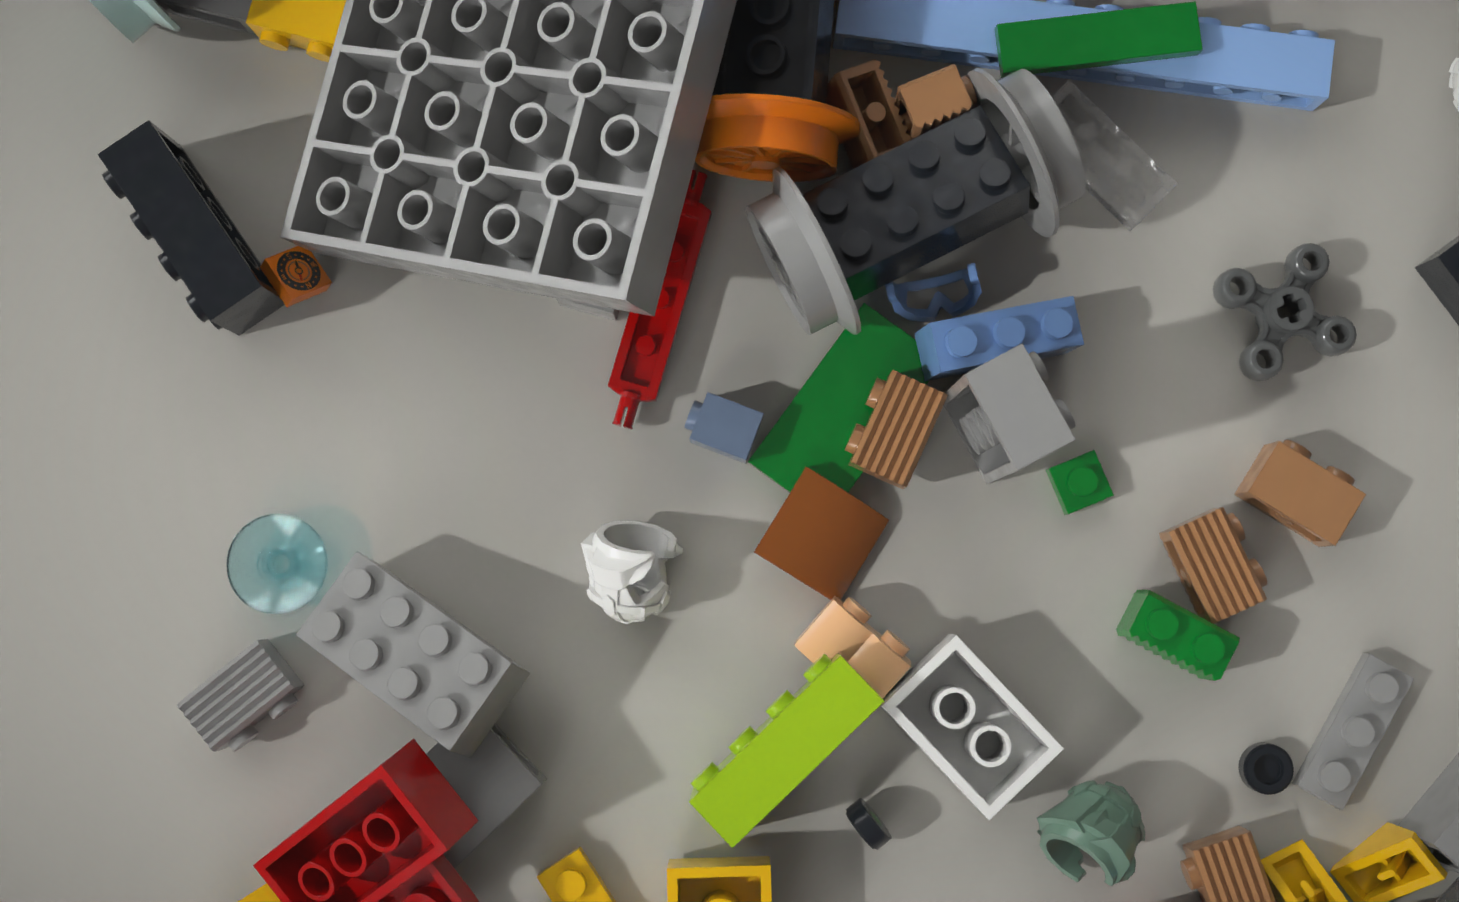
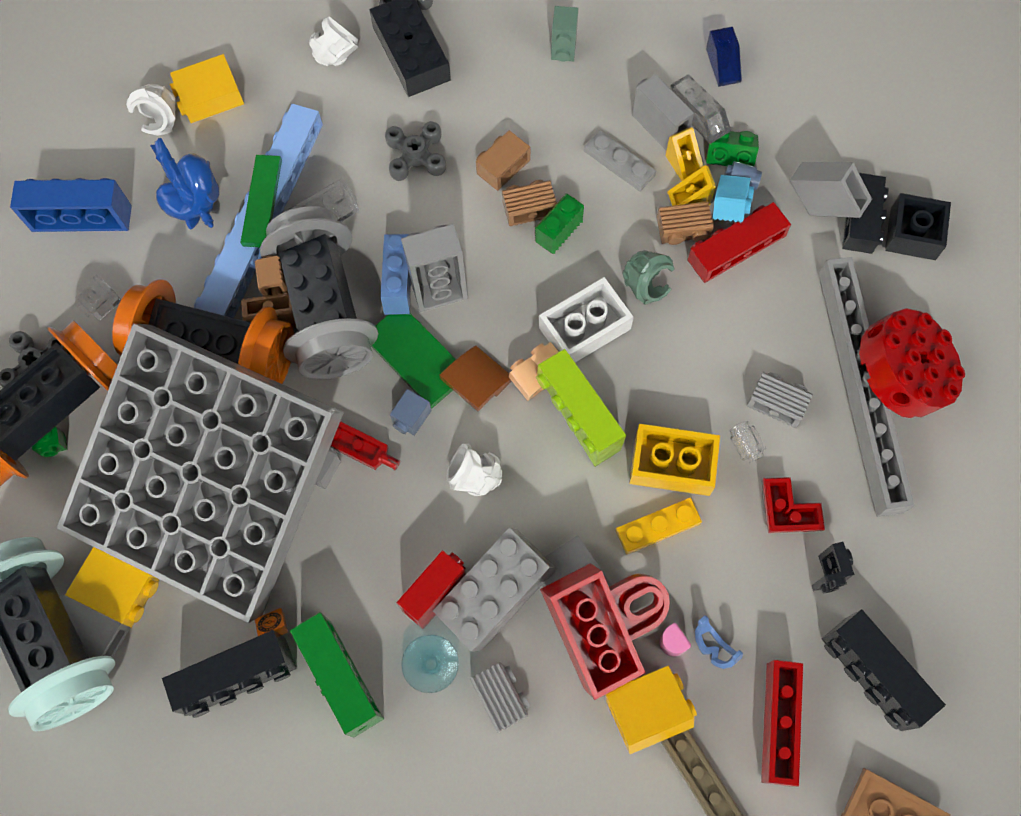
camera: 80 degrees left, 15 degrees down
(219, 412) = (336, 675): none -> green brick
(395, 543) = (431, 588): none -> red brick
(868, 824) = (627, 380): black tile -> none
(896, 428) = (430, 328): medium nougat brick -> none
(898, 295) = (364, 280): medium blue helmet -> none
(1079, 482) = (476, 255): green plate -> none
(1266, 768) = (631, 200): black tile -> none

